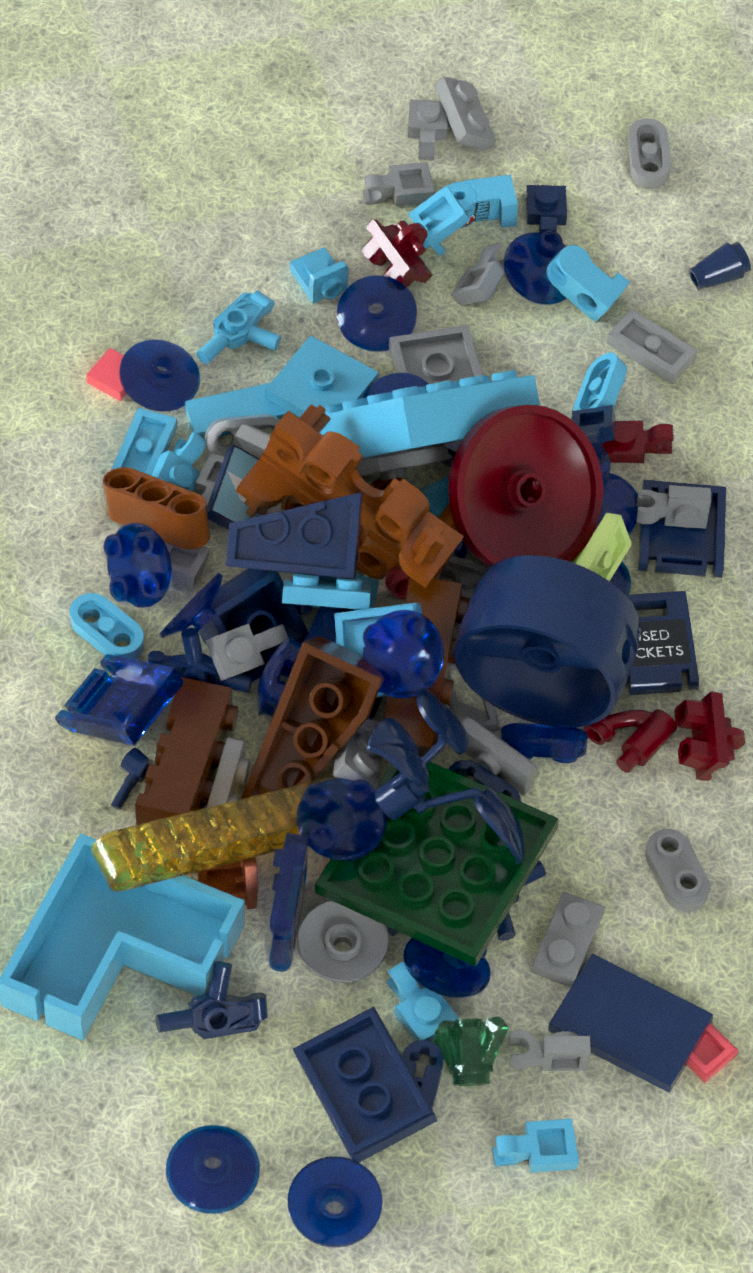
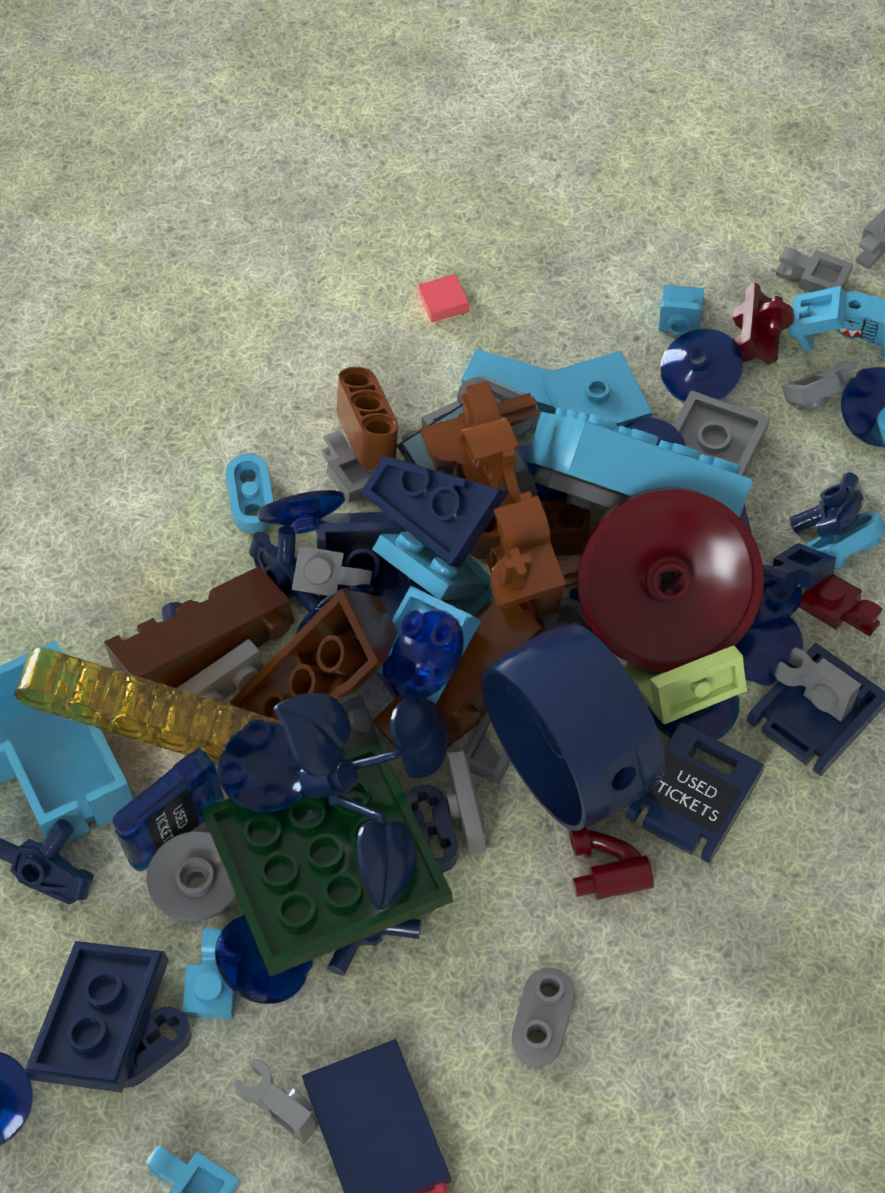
camera: 45 degrees right, 0 degrees up
(120, 704) = (201, 556): clear blue container -> none
(138, 565) = (312, 454): clear blue dish -> none
(145, 441) = (412, 367): medium azure plate -> none
(154, 387) = (475, 331): clear blue dish -> none
(177, 465) = (414, 400): medium azure plate -> none
(236, 879) = (148, 763): copper tile -> none
(239, 325) = (576, 313): medium azure piece -> none
(470, 1048) = (210, 1048): clear green rock -> none
(557, 742) = (520, 818): clear blue plate -> none
(568, 939) = (390, 1010): light grey plate -> none
(577, 365) = (836, 510): none -> dark blue piece
(712, 735) = (659, 926): dark red hips -> none

